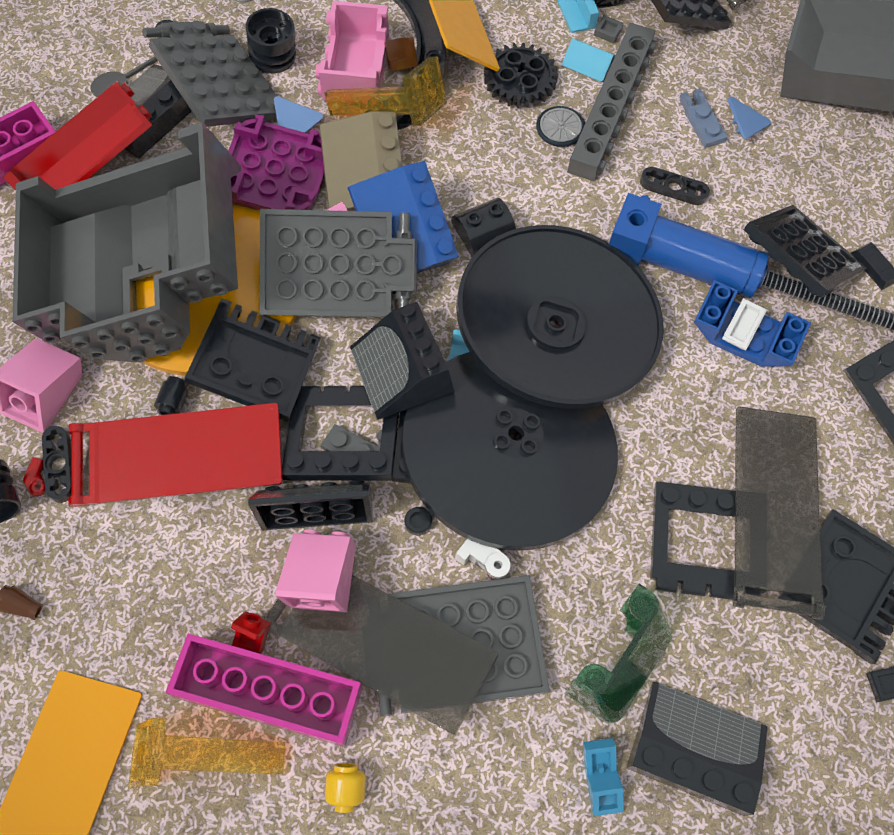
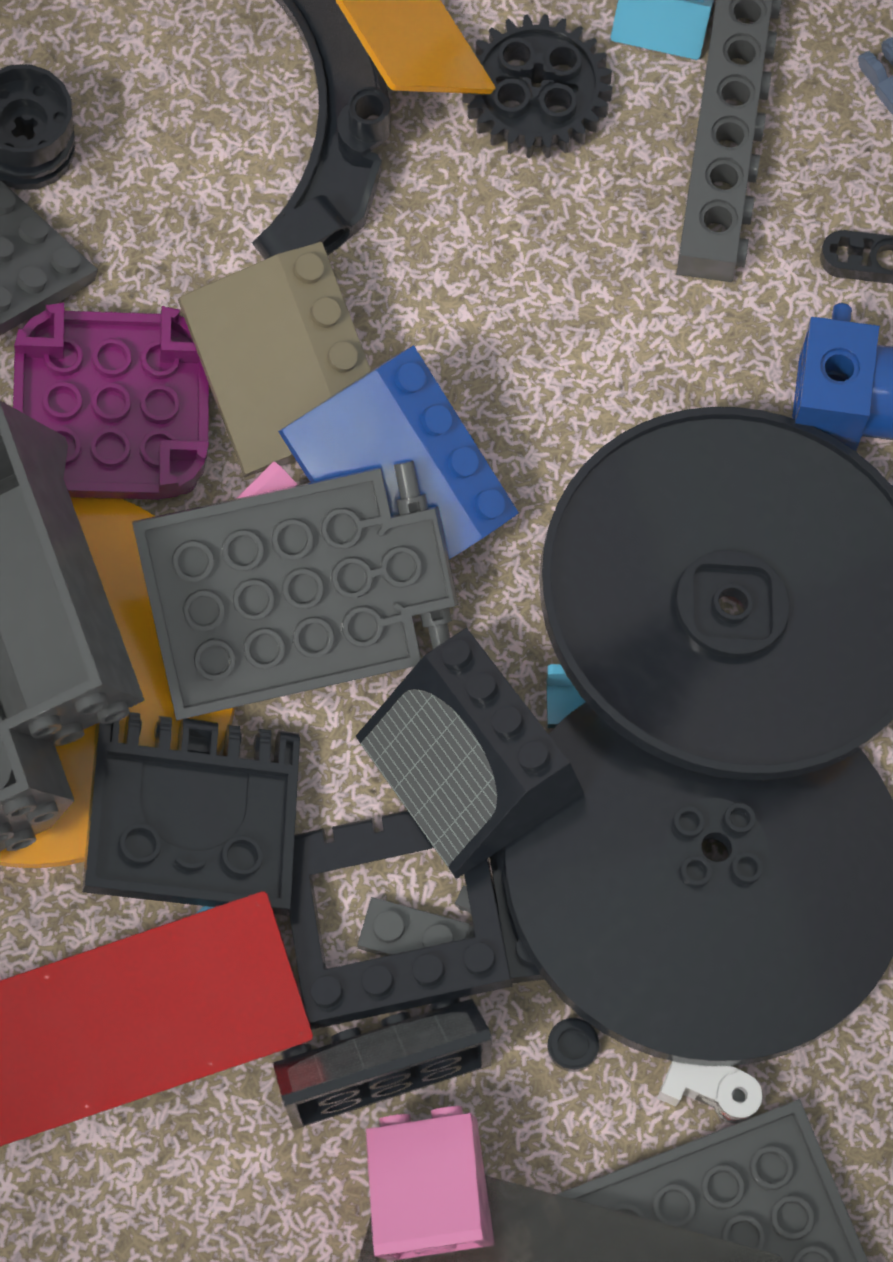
camera: 10 degrees left, 5 degrees up
(171, 396) = (54, 917): black brick -> none
(295, 115) = (118, 282): medium blue piece -> none
(356, 47) = (198, 119): bright pink windscreen -> none
(401, 53) = (291, 97): reddish brown panel -> none
(420, 96) = (360, 209): clear yellow bracket -> none
(483, 224) = (548, 432): black brick -> none
(560, 126) = (640, 178): light grey wheel -> none

